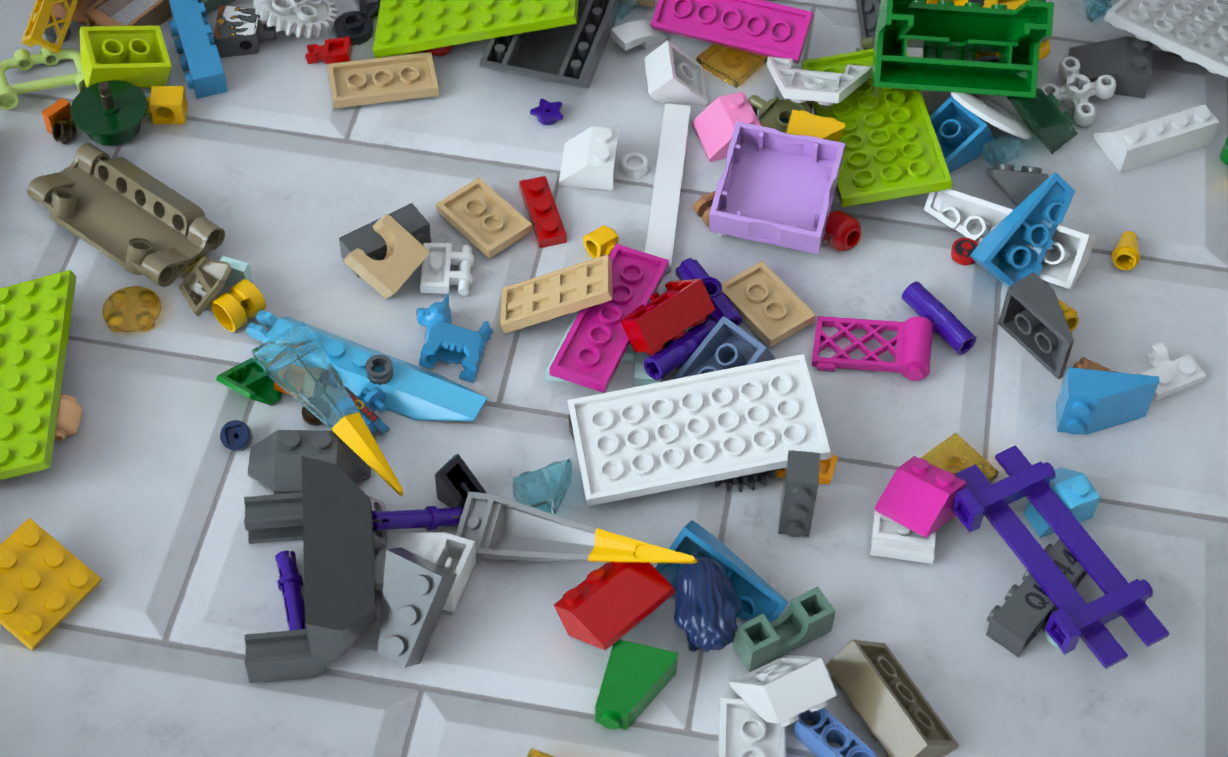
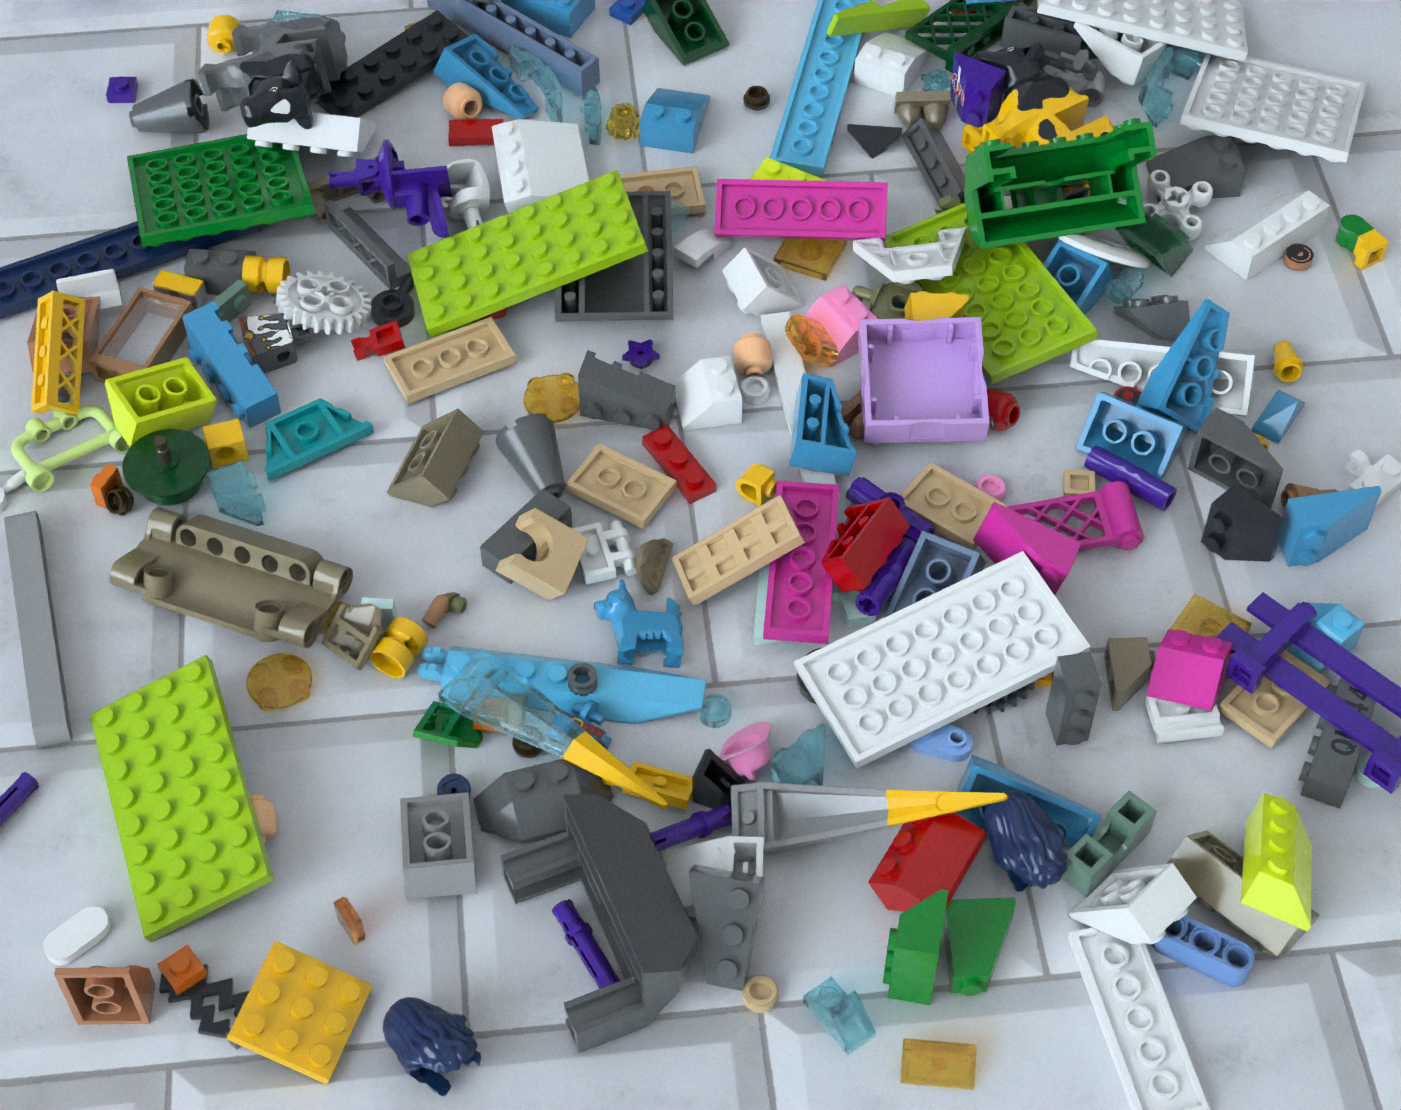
camera: 15 degrees left, 0 degrees up
(104, 519) = (349, 920): none -> clear orange tile
(123, 636) = (429, 1041): none -> dark blue hair
(159, 146) = (235, 493): none -> clear light blue slope
(200, 477) = (437, 846): none -> light grey slope
(239, 114) = (309, 435): none -> teal wing
(292, 279) = (443, 604): none -> medium nougat arm
(337, 160) = (437, 460): none -> dark tan slope
(411, 475) = (671, 786): none -> yellow plate
(418, 171) = (534, 453): none -> dark grey cone
(426, 676) = (760, 994): none -> tan tile
(457, 131) = (553, 396): none -> clear yellow dish
(483, 287) = (651, 563): none -> dark tan plate
(487, 426) = (715, 711): none -> clear light blue tile
(487, 713) = (840, 1014): none -> clear light blue slope
(497, 468) = (748, 750): none -> bright pink piece
(514, 143) = (624, 397): none -> dark grey wedge
(569, 672) = (915, 950): none -> green slope
(642, 134) = (752, 355): none -> light nougat head
(669, 209) = (818, 430): none -> dark azure wedge
(671, 505) = (940, 744): none -> light blue plate
(698, 134) = (815, 334): none -> clear yellow beam
(811, 296) = (992, 486): none -> bright pink tile
(825, 358) = (1008, 533): none -> dark pink slope
(867, 482) = (1127, 668): none -> dark tan slope
(891, 310) = (1078, 482): none -> tan tile
(931, 688) = (1277, 862): none -> neon yellow slope
(956, 280) = (1132, 433): none -> dark azure slope
(983, 551) = (1270, 709): none -> tan plate
(1020, 384) = (1242, 527): none -> black slope
(1100, 297) = (1278, 416): none -> dark azure slope
(1176, 162) = (1298, 257): none -> tile

